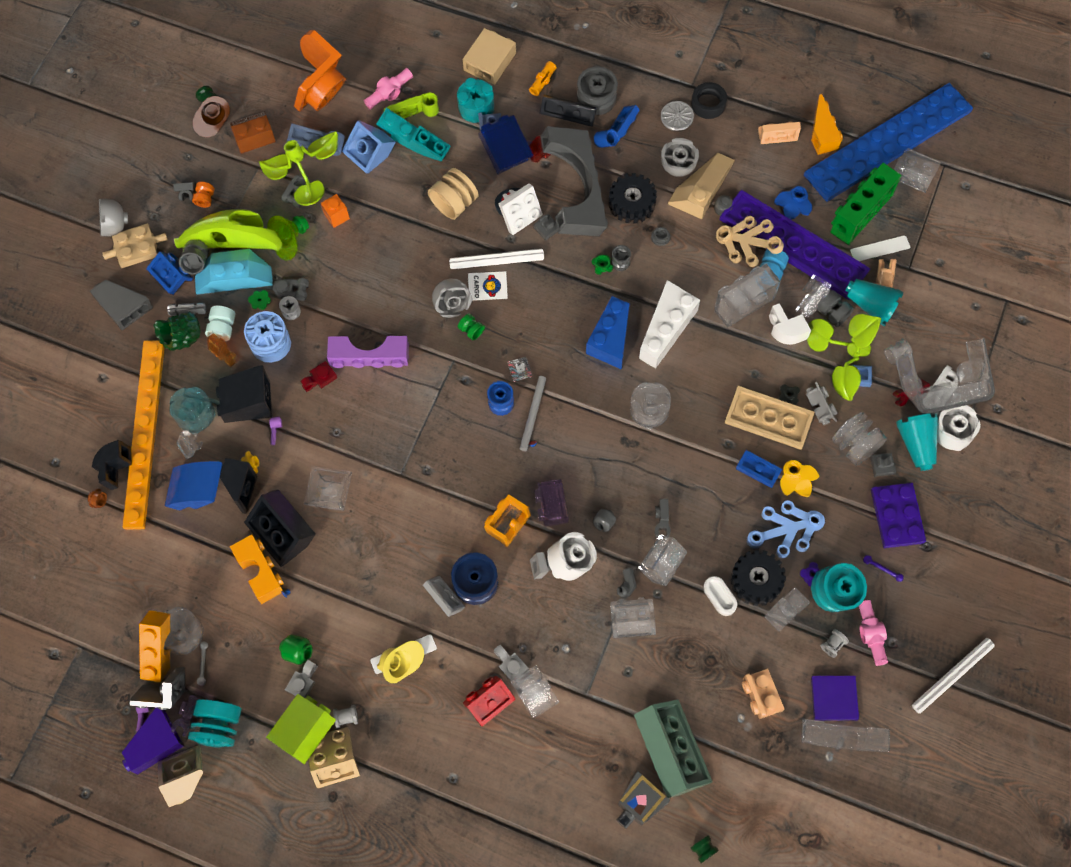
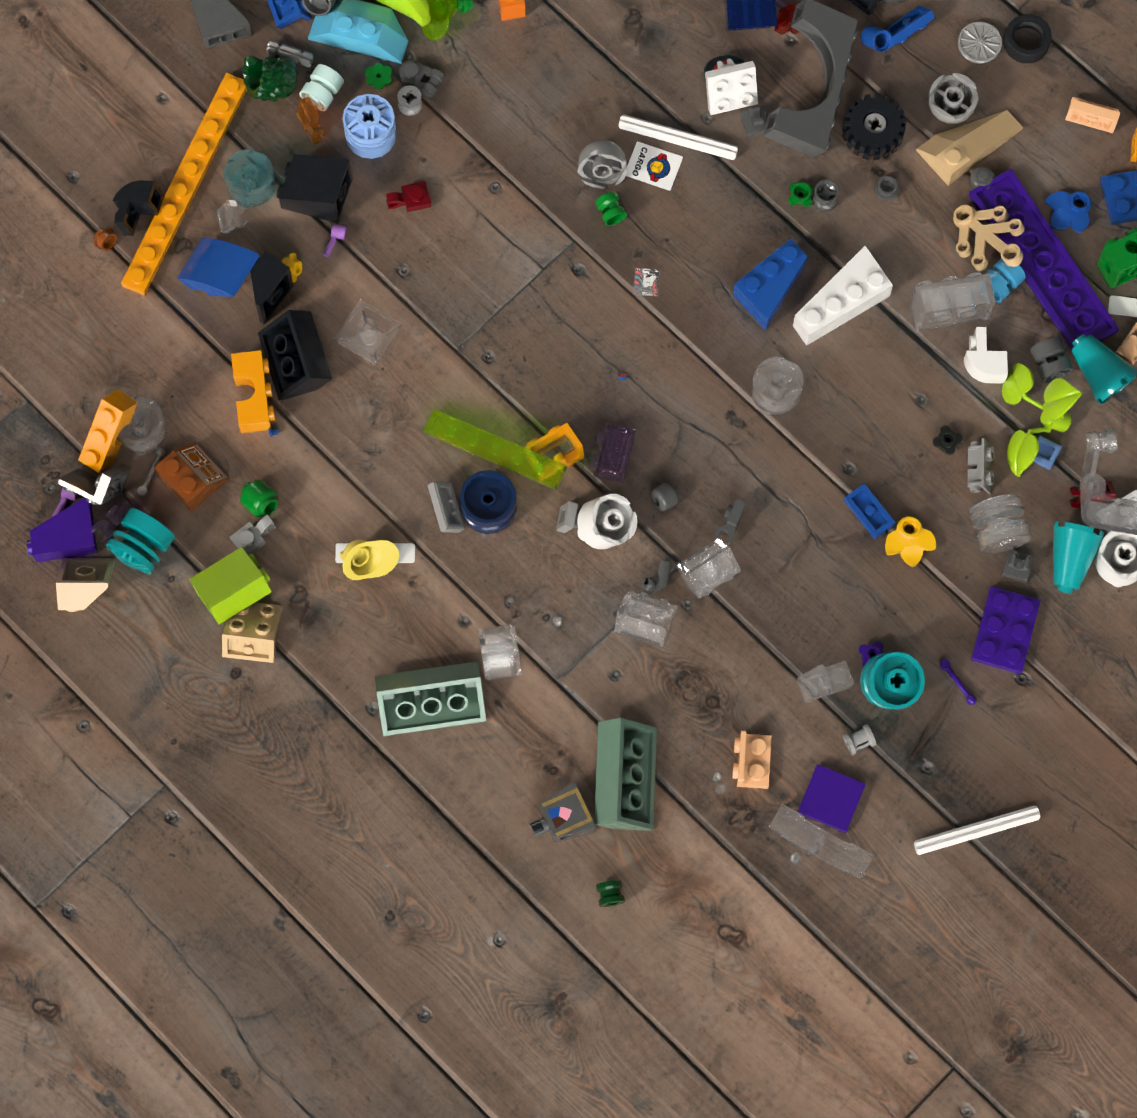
camera: 20 degrees right, 5 degrees up
(234, 653) = (190, 475): none -> dark orange slope
(345, 716) = (284, 593): light grey bush -> none
(391, 353) = (506, 202): medium lavender arch -> none
(453, 193) = (663, 35): tan wheel -> none
(463, 536) = (495, 449): none -> clear neon green tile
(488, 700) = (447, 641): bracket -> none
(495, 751) = (430, 698): none -> sand green slope
(500, 398) = (607, 307): blue wheel -> none
(512, 665) = (488, 613): light grey plate -> none
(532, 413) = (638, 340): light grey bar -> none
(720, 595) = (757, 635): white tile -> none
(758, 591) = (800, 647): black bush -> none
(769, 417) = (911, 457): tan plate -> none
(788, 527) = (871, 592): light blue plant -> none
(816, 290) = (1037, 329): clear plate -> none
(873, 633) = (908, 746): bright pink pin -> none

